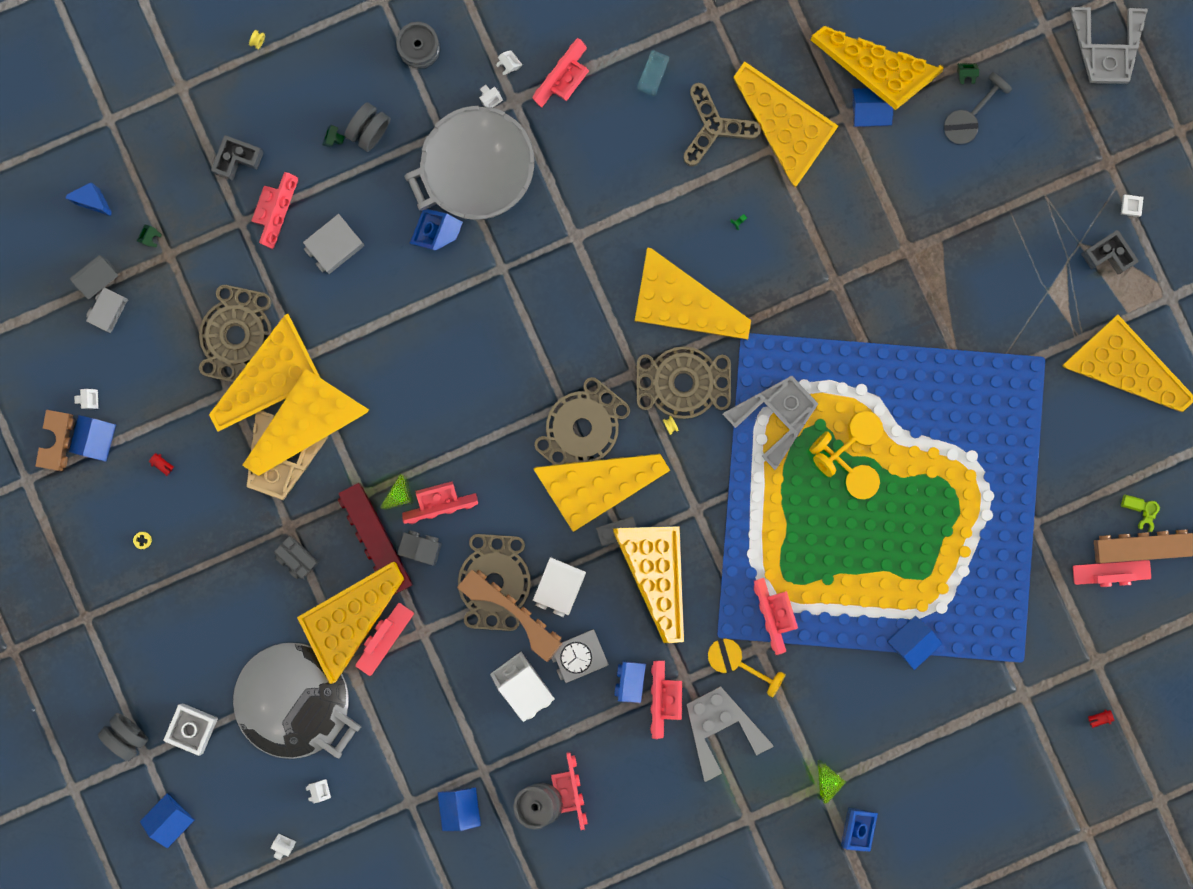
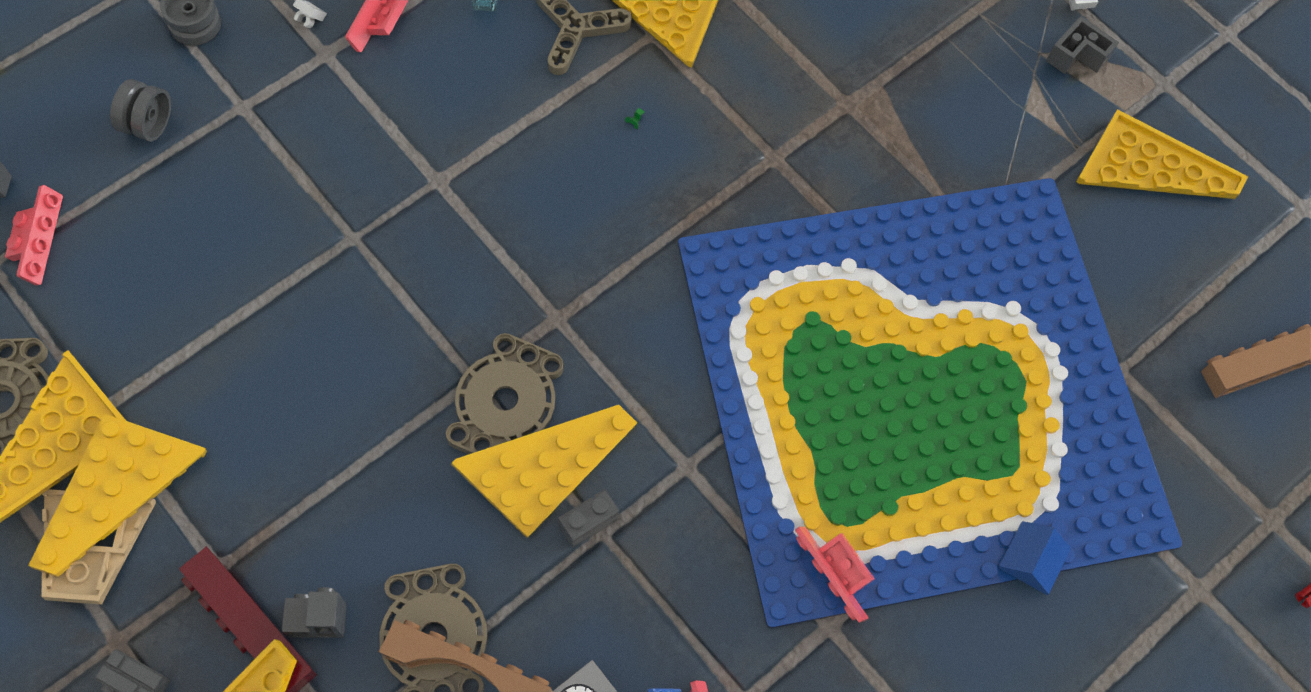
camera: 25 degrees left, 20 degrees down
(332, 137) = (100, 136): dark green tile -> none
(332, 244) = (120, 257): light grey brick -> none
(399, 494) = (266, 549): clear neon green slope -> none
(435, 230) = (255, 205): blue slope -> none
(437, 501) = (327, 543): coral bracket -> none
(474, 164) = (287, 122): light grey dish -> none
(490, 97) = (294, 51): white tile -> none
(559, 587) = (527, 613): white slope -> none
(656, 566) = (656, 548): yellow wing -> none
(670, 425) = (621, 366): light yellow bush -> none
(679, 301) = (587, 219): yellow wing -> none
(703, 379) = (629, 288): dark tan piece -> none
(726, 657) = (790, 650): yellow piece -> none
(789, 403) = (765, 299): light grey wing -> none
(861, 480) = (888, 369): yellow piece -> none
(864, 428) = (870, 307): yellow piece -> none
(1108, 573) = (1242, 402): coral bracket -> none
(1149, 509) = (1251, 315): lime bar -> none

